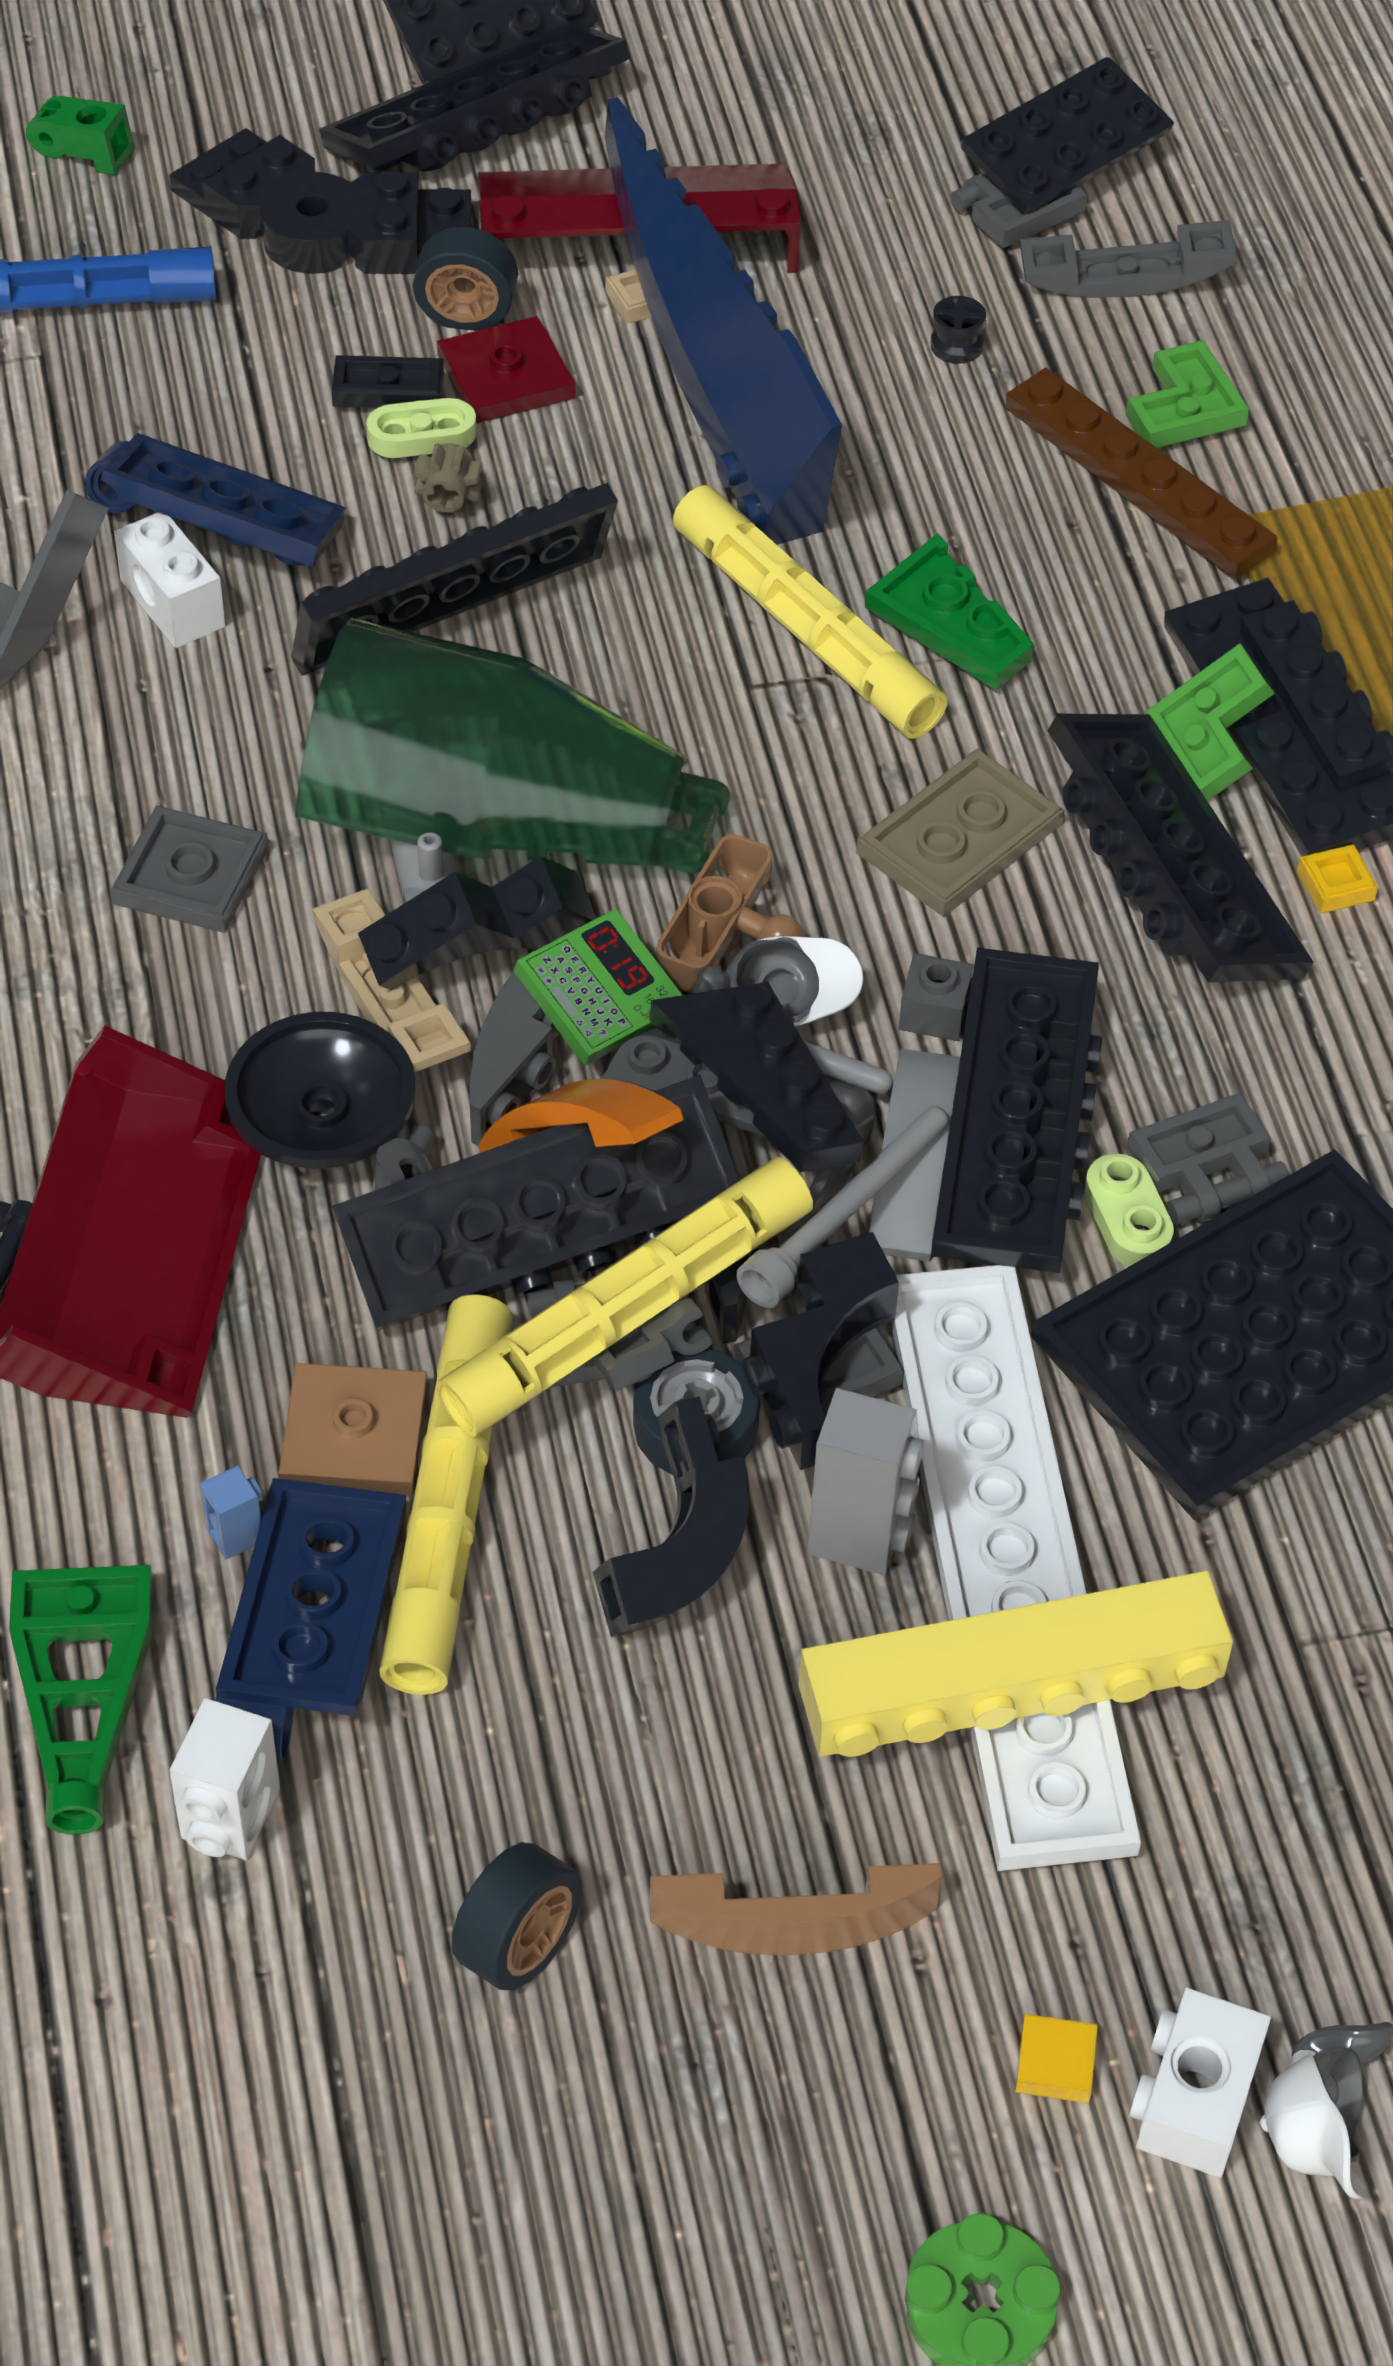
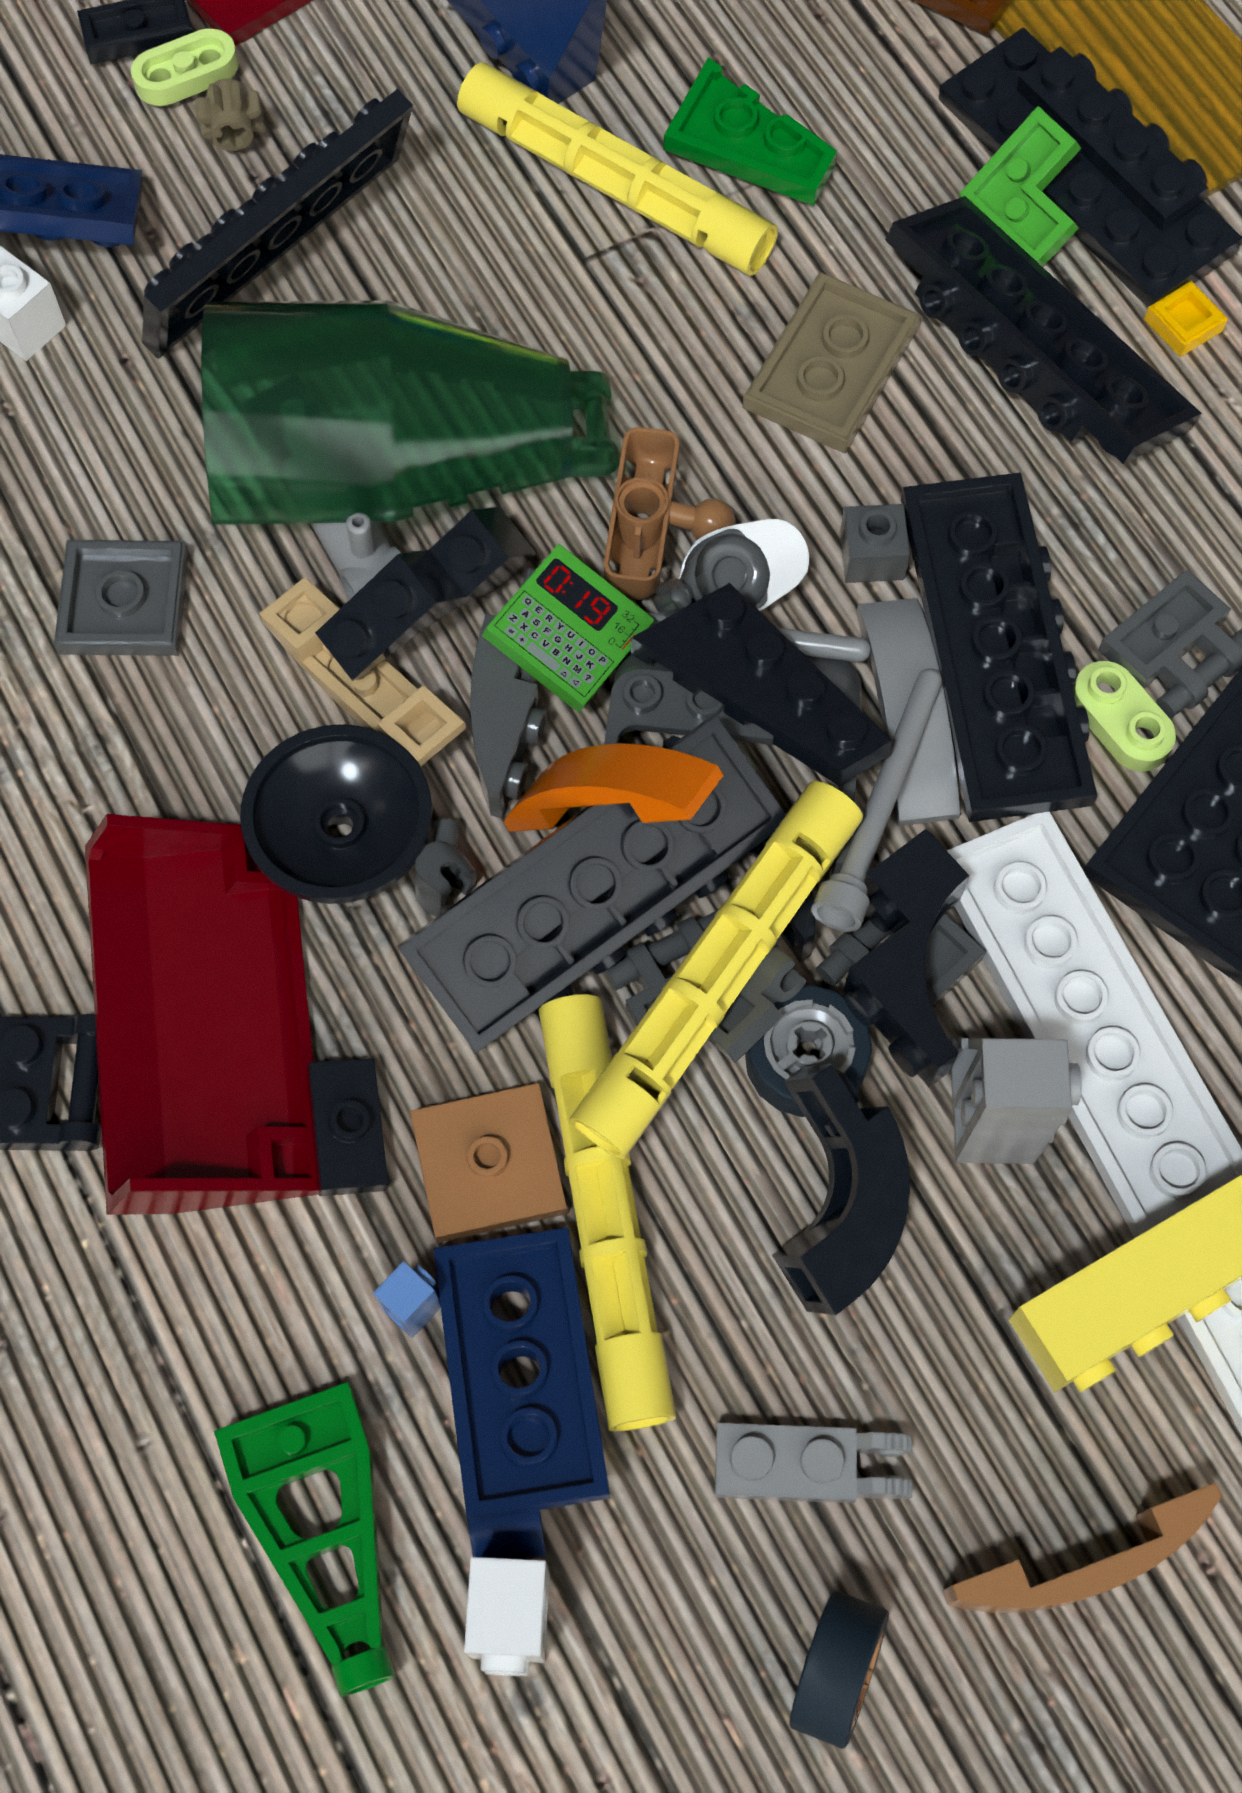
camera: 15 degrees left, 15 degrees up
(231, 1362) = (347, 1127): none -> black plate
(560, 1761) = (804, 1463): none -> light grey hinge

